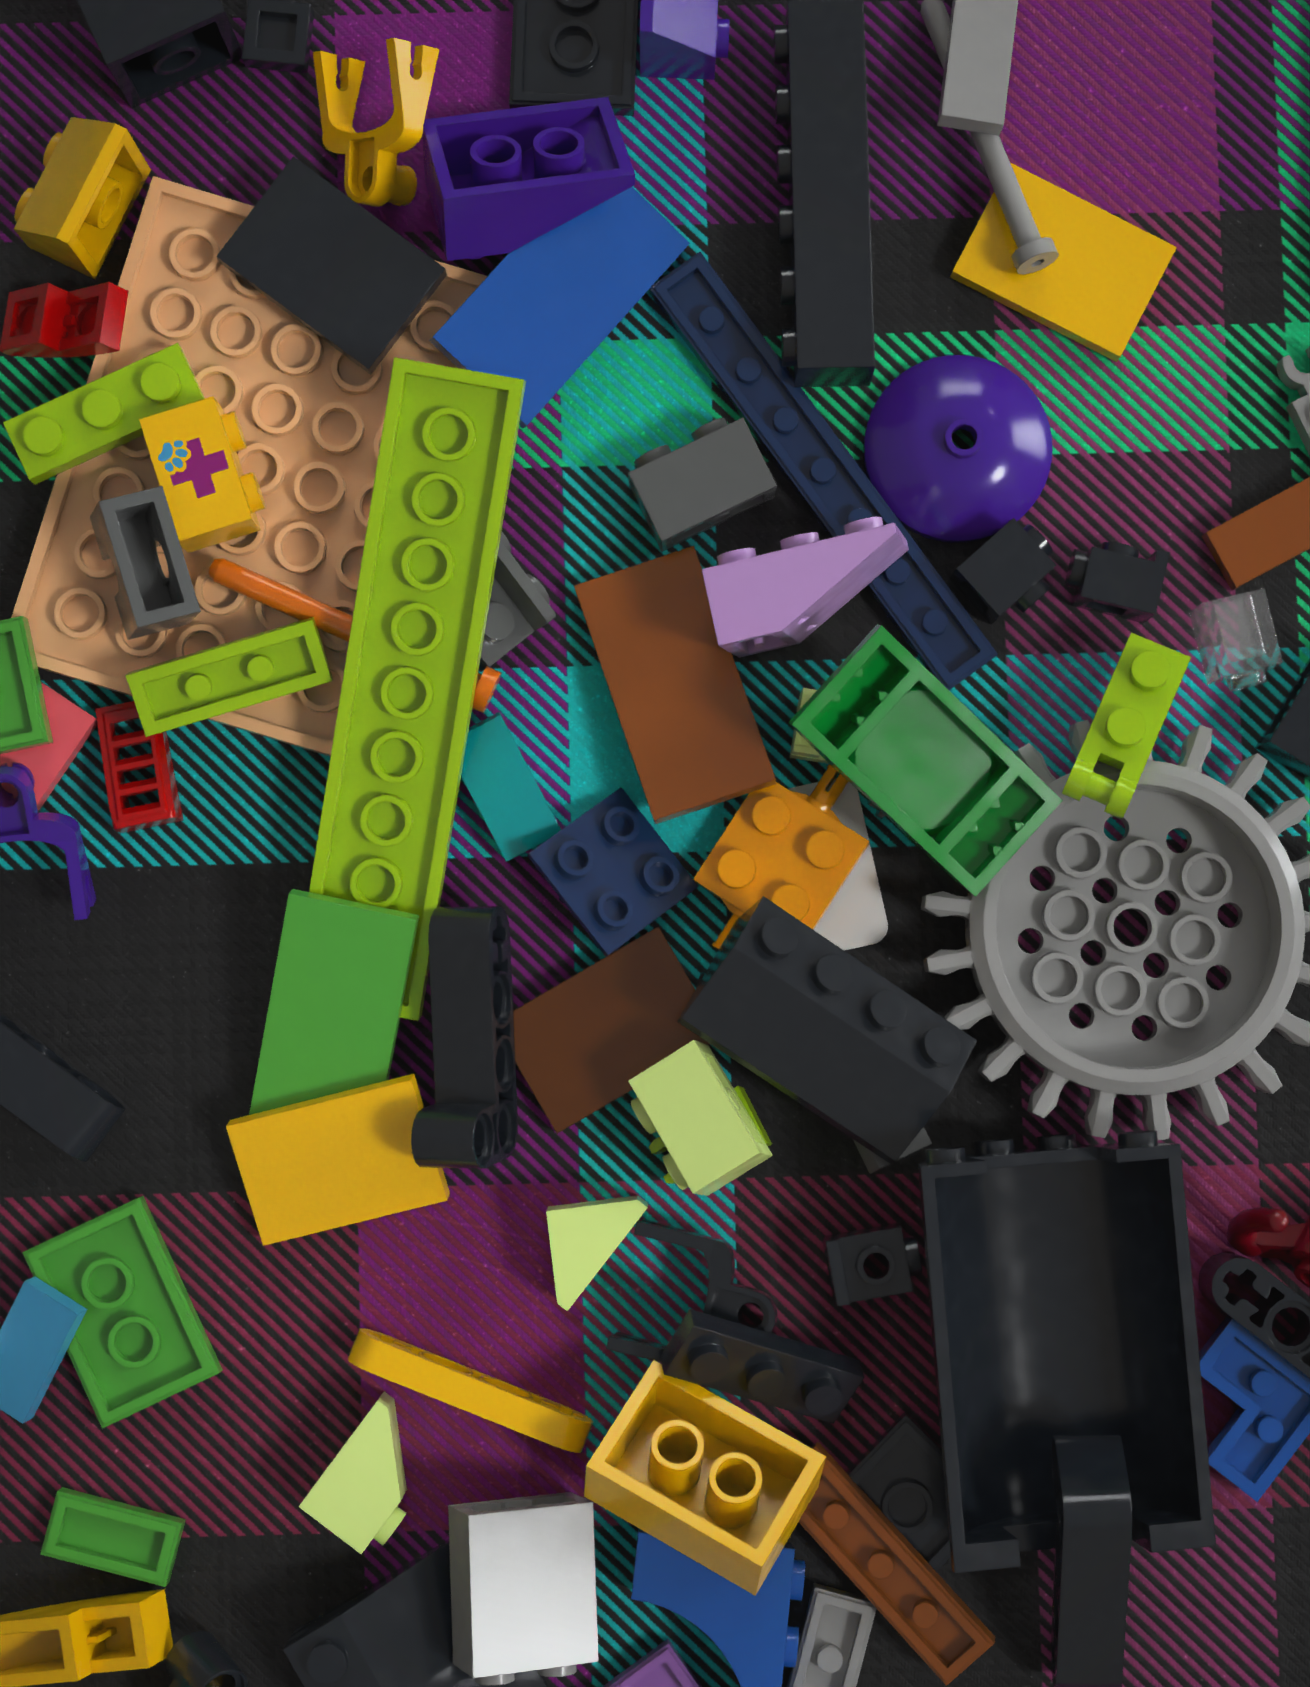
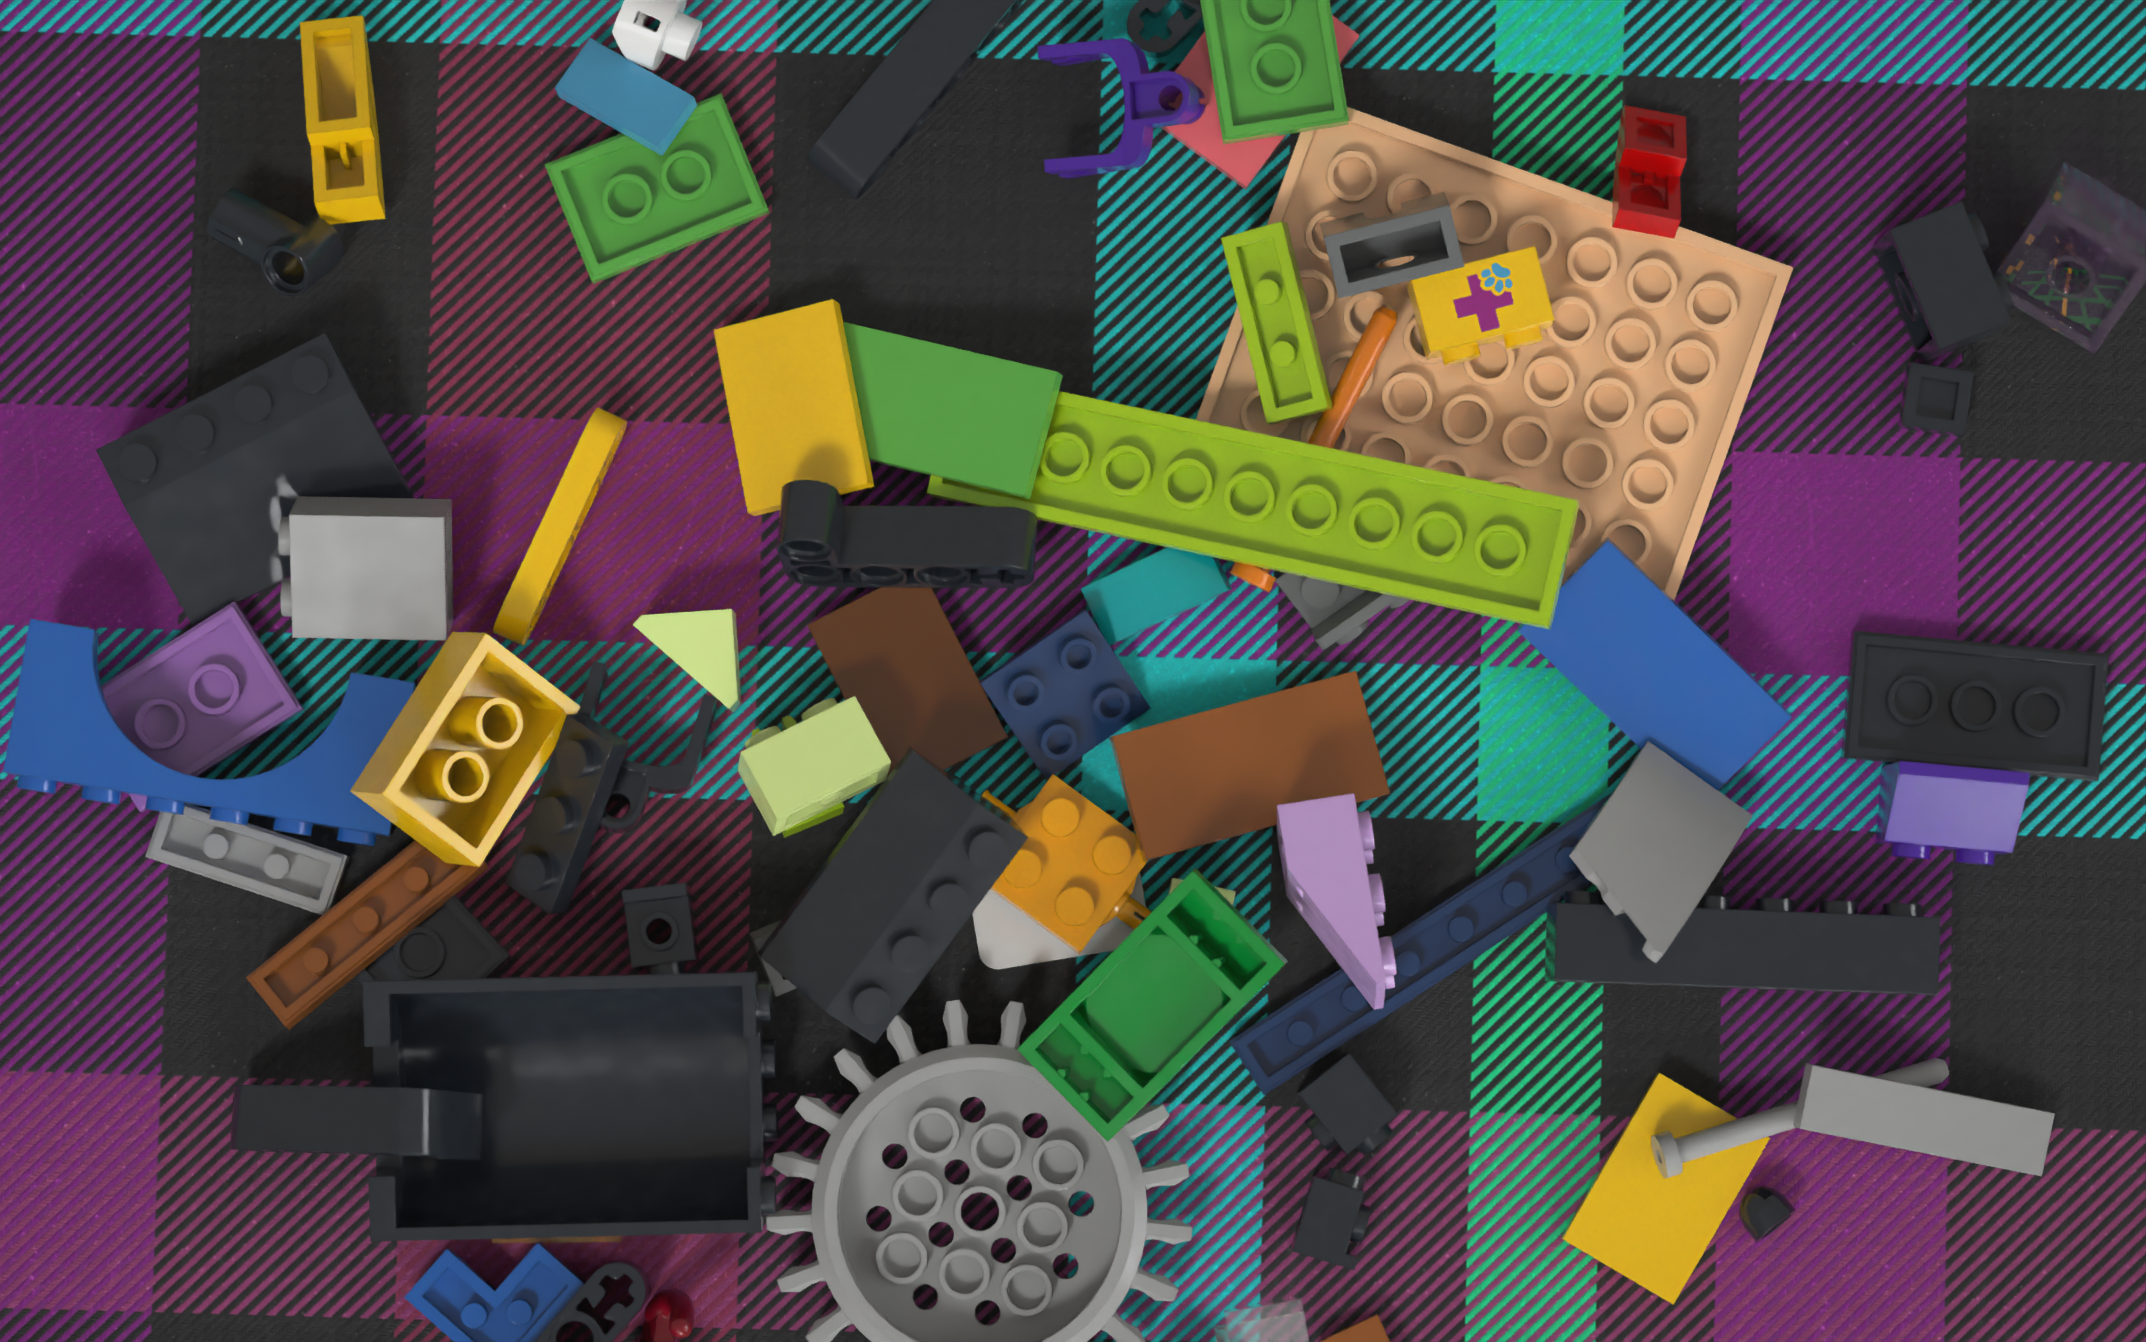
camera: 95 degrees right, 0 degrees up
(82, 194) = (1776, 194): yellow slope -> none
(101, 413) = (1550, 210): lime plate -> none
(113, 1536) = (438, 170): bright green tile -> none
(144, 816) = (1146, 209): red slope -> none
(332, 265) = (1690, 443): black tile -> none
(364, 1482) = (478, 417): yellowish green slope -> none
(371, 156) = (1798, 487): yellow piece -> none
(520, 172) = (1774, 638): dark purple slope -> none
(701, 482) = (1453, 803): dark grey brick -> none
(735, 272) = (1658, 845): none -> light grey slope
(948, 489) = (1431, 1060): dark purple dish -> none
(1081, 164) = (1764, 1211): none -> black hinge
(1127, 723) = (1182, 1213): lime plate -> none

